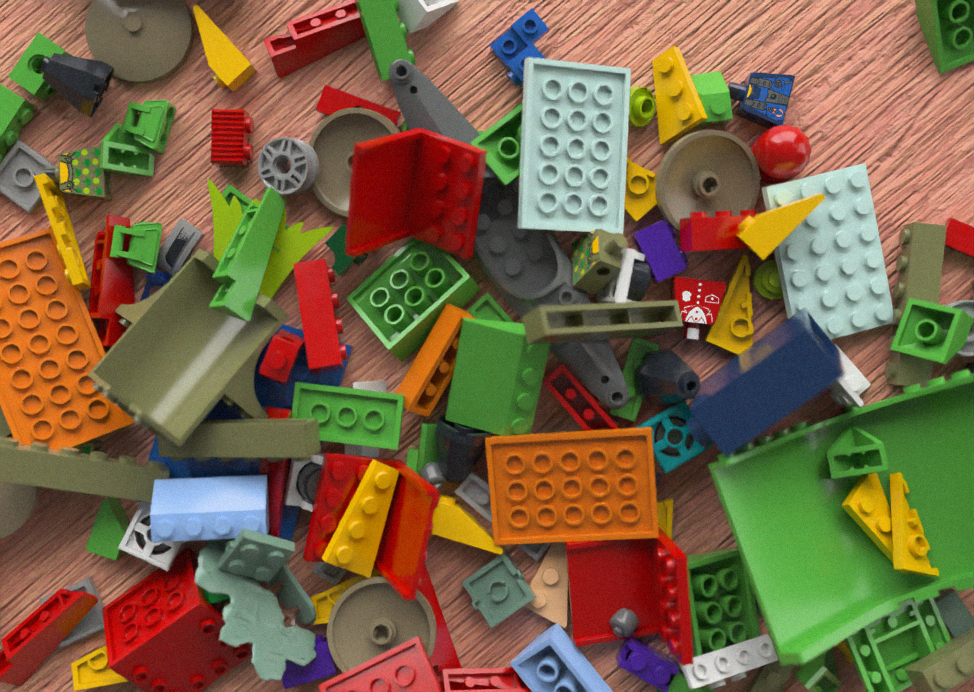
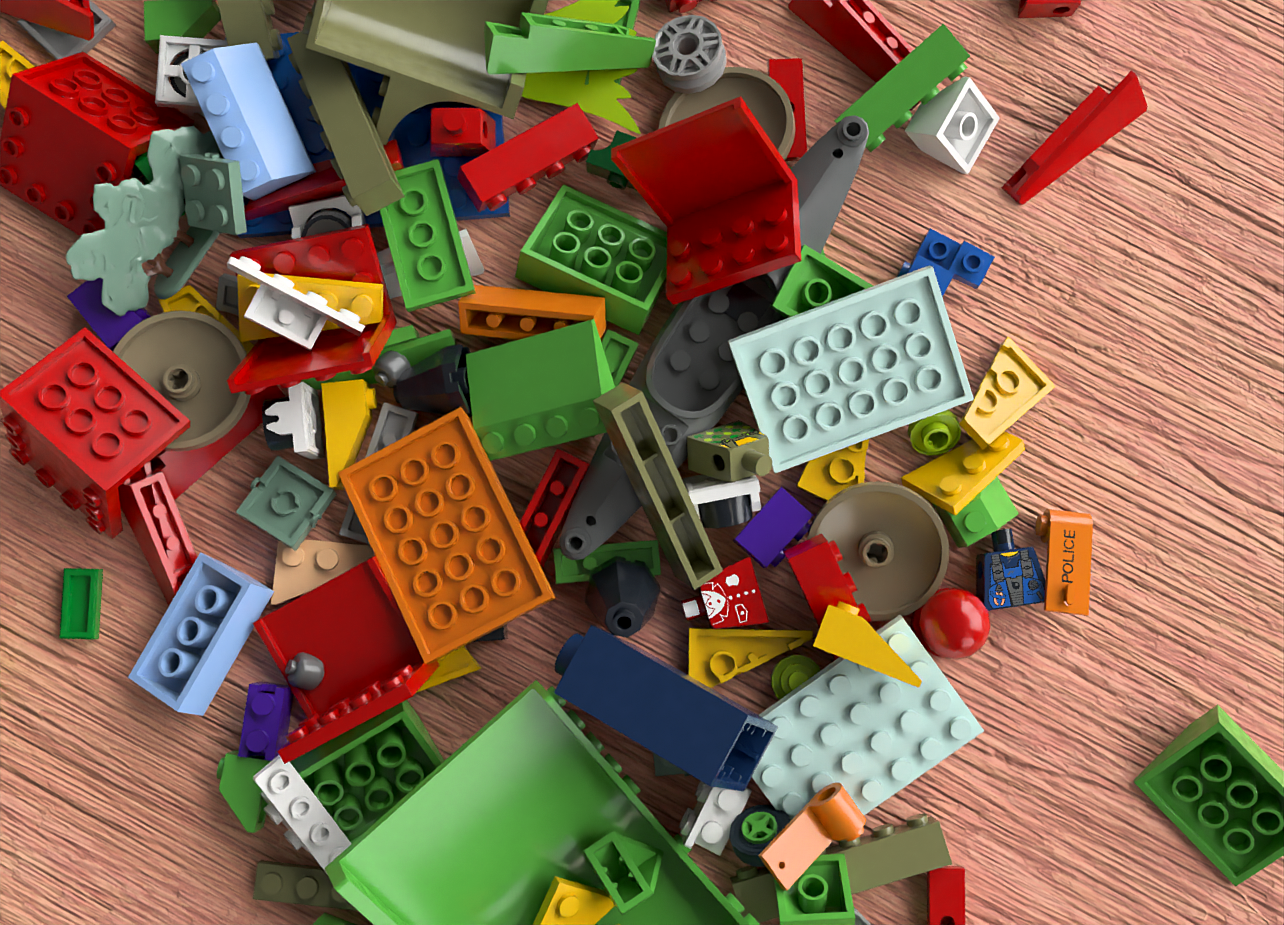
camera: 65 degrees right, 5 degrees down
(368, 536) = (287, 310): none -> white bracket
(446, 562) = (294, 422): none -> white piece
(633, 44) = (1004, 395): none -> yellow wing
(673, 437) = (550, 632): teal piece -> none
(770, 51) = (1068, 560): none -> orange door
(861, 345) = (755, 830): none -> black wheel
(879, 300) = (823, 819): none -> door

